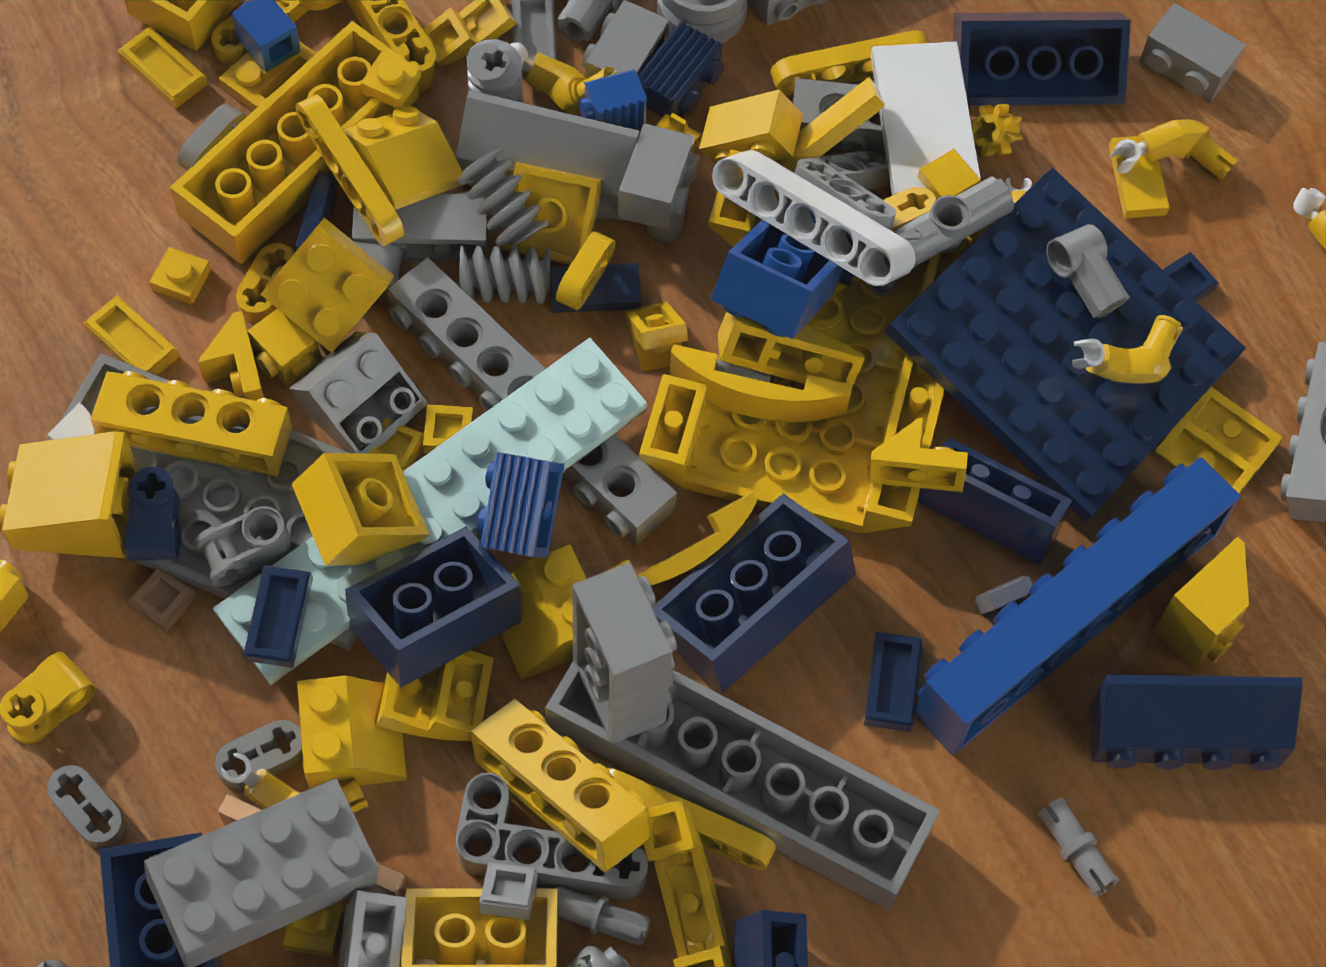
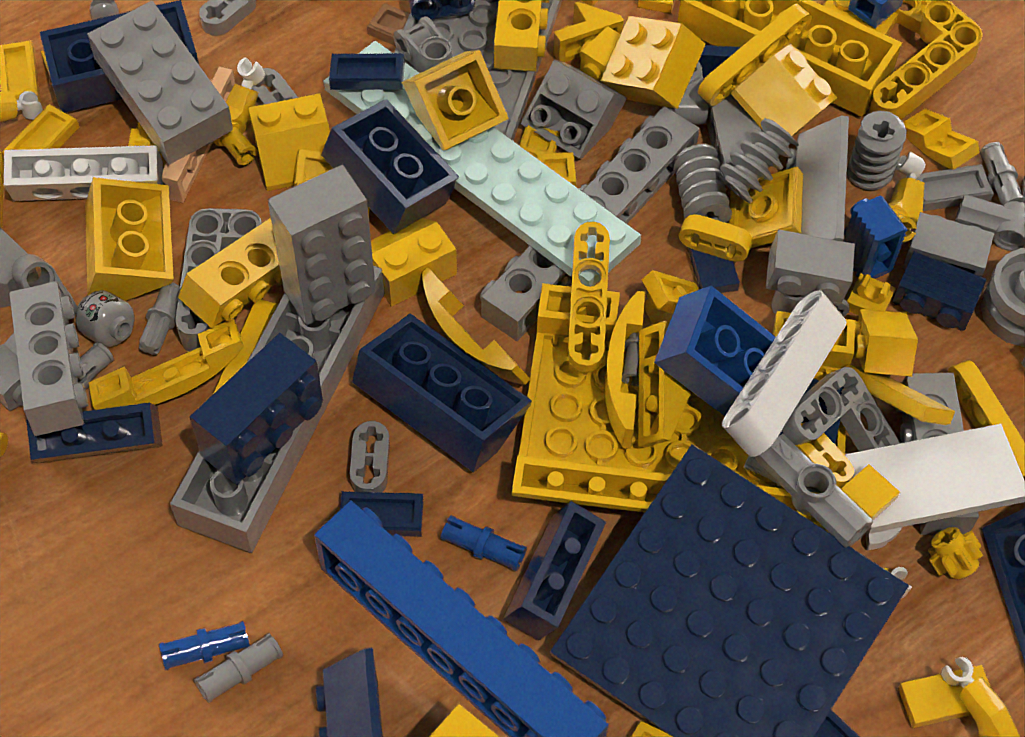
camera: 85 degrees right, 5 degrees down
(390, 80) = (849, 71): yellow plate -> none
(508, 891) = (166, 244): light grey tile -> none
(520, 504) = (471, 197): blue brick -> none
(676, 394) = (589, 296): none -> yellow beam
(810, 764) = (258, 409): none -> dark blue brick
(825, 675) = (361, 458): none -> light grey beam
(905, 464) = (564, 474): yellow slope -> none
(941, 575) = (483, 543): none -> blue pin
(1003, 594) = (462, 579): light grey tile -> none
(1049, 884) = (204, 645): none -> blue pin
(1083, 259) = (800, 609): light grey piece -> none
(1134, 365) = (702, 663): yellow arm -> none

